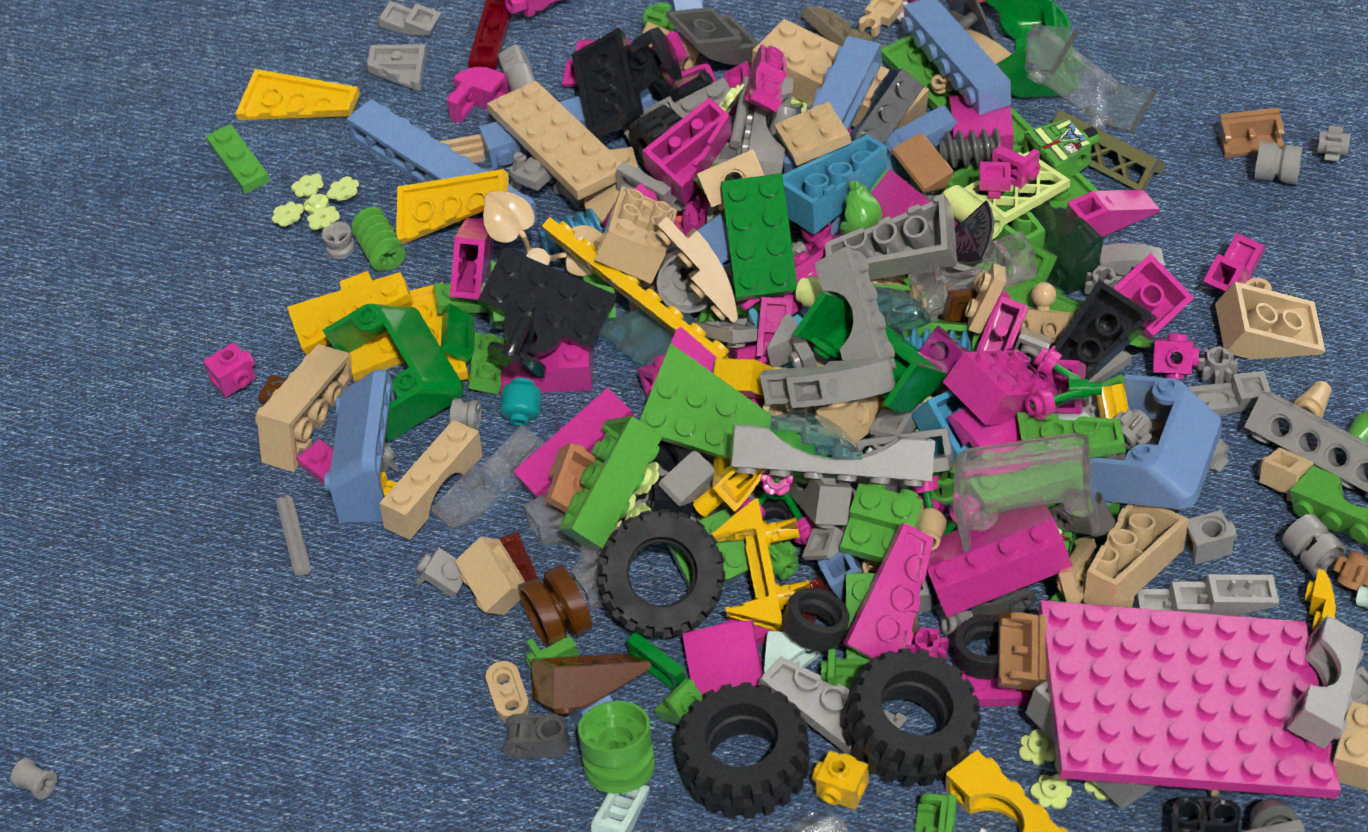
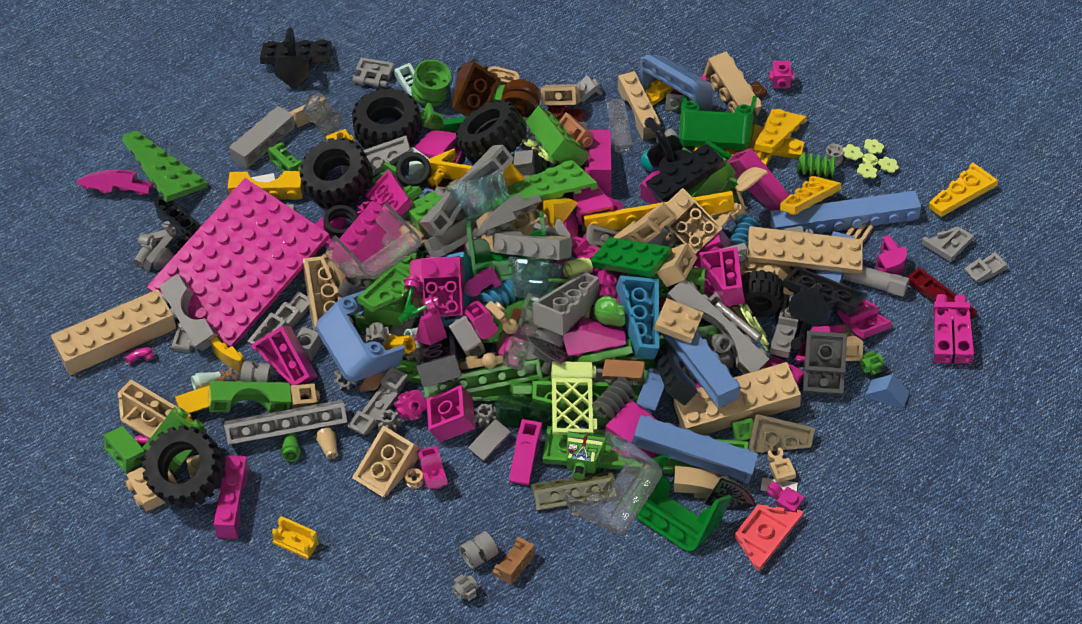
camera: 125 degrees right, 0 degrees up
(237, 158) = (938, 150): bright green plate -> none
(293, 536) = (679, 60): light grey axle -> none
(766, 77) = (742, 333): dark pink slope -> none
(995, 178) = (576, 382): dark pink tile -> none
(1022, 167) = (578, 401): dark pink bracket -> none
(1022, 651) = (318, 217): medium nougat hinge -> none
(1262, 519) = (286, 355): none -> dark pink wedge

